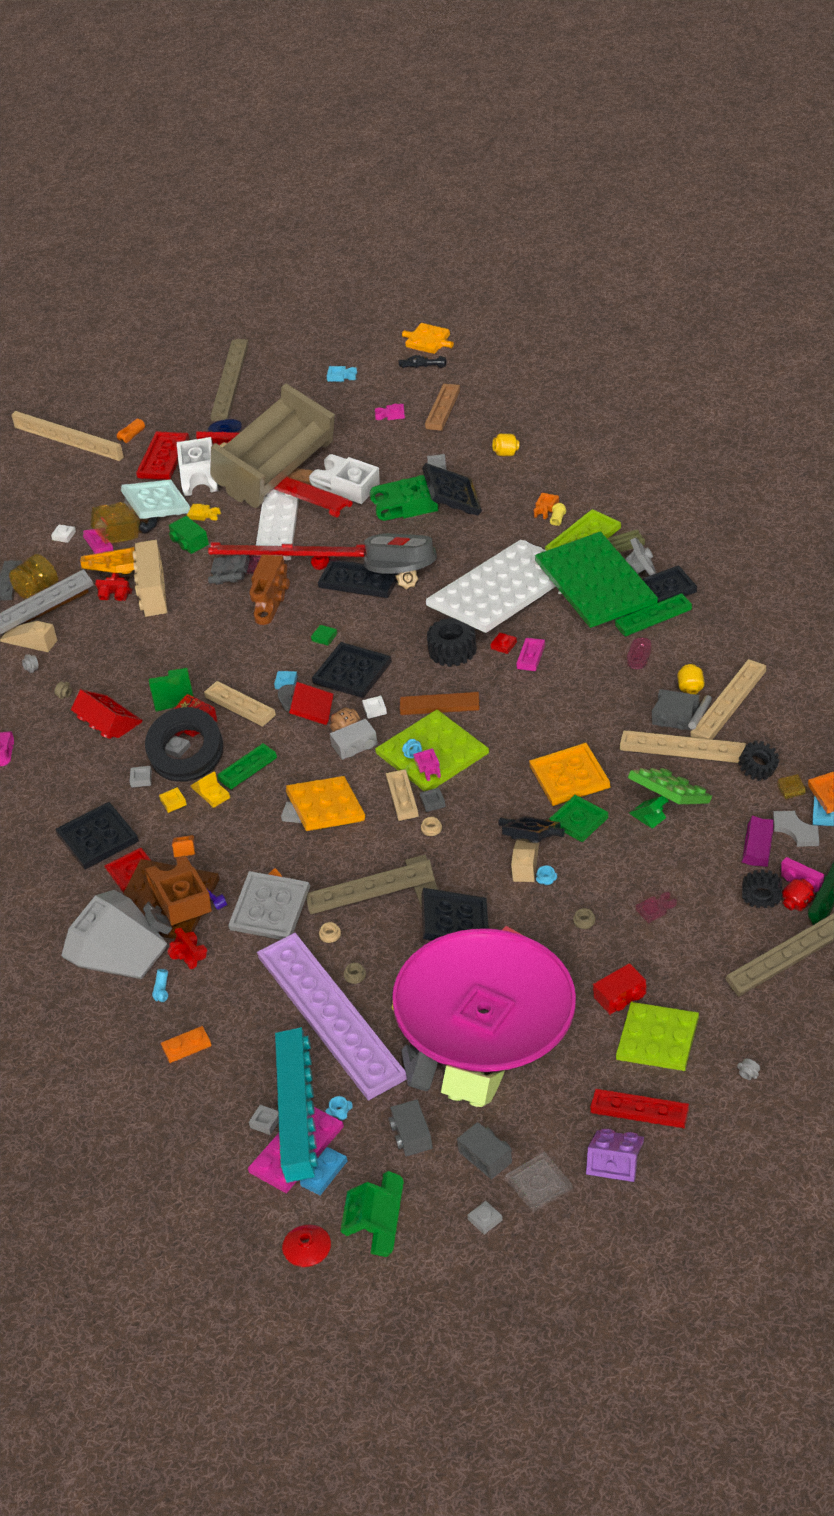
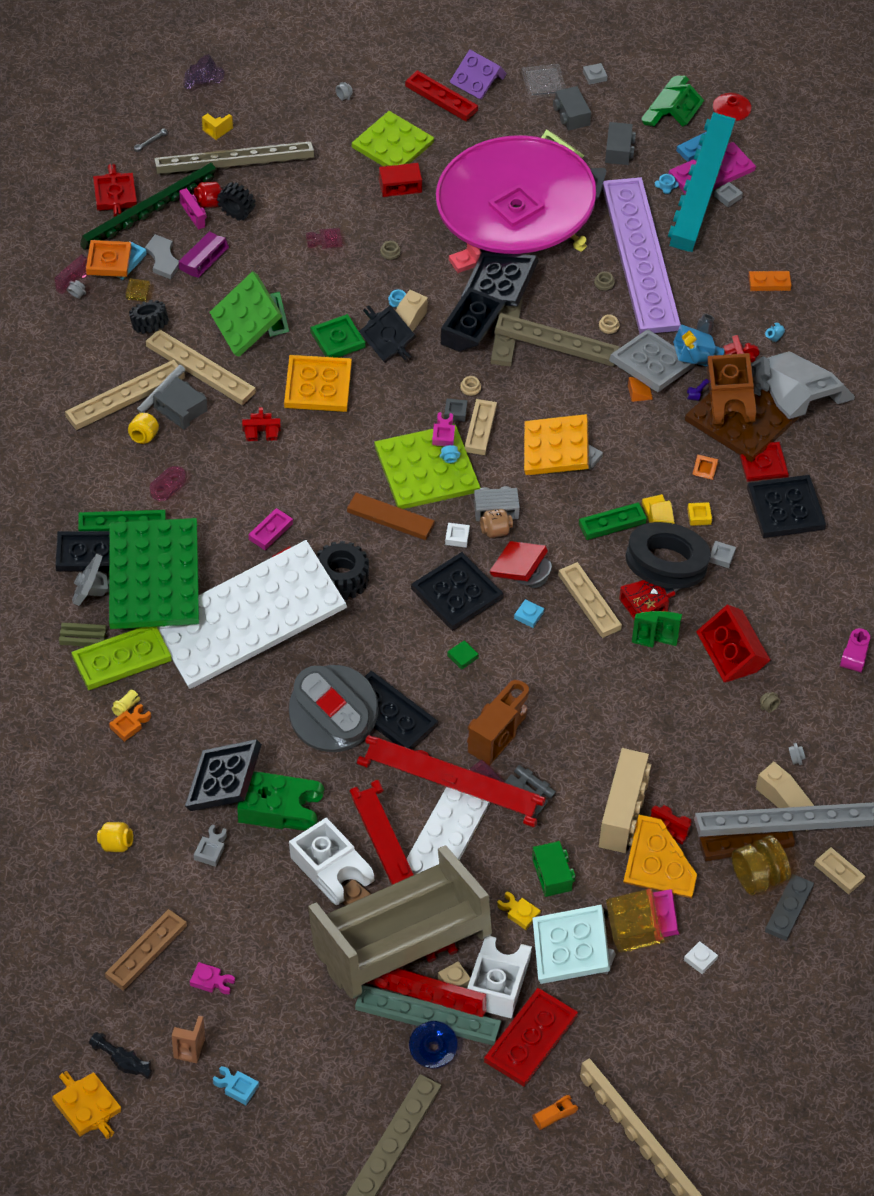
camera: 165 degrees left, 10 degrees up
(230, 926) = (696, 344): none -> dark azure torso
(380, 367) = (188, 1044): none -> nougat panel
(458, 865) = (470, 320): none -> black slope
(593, 720) = (261, 422): none -> red hips

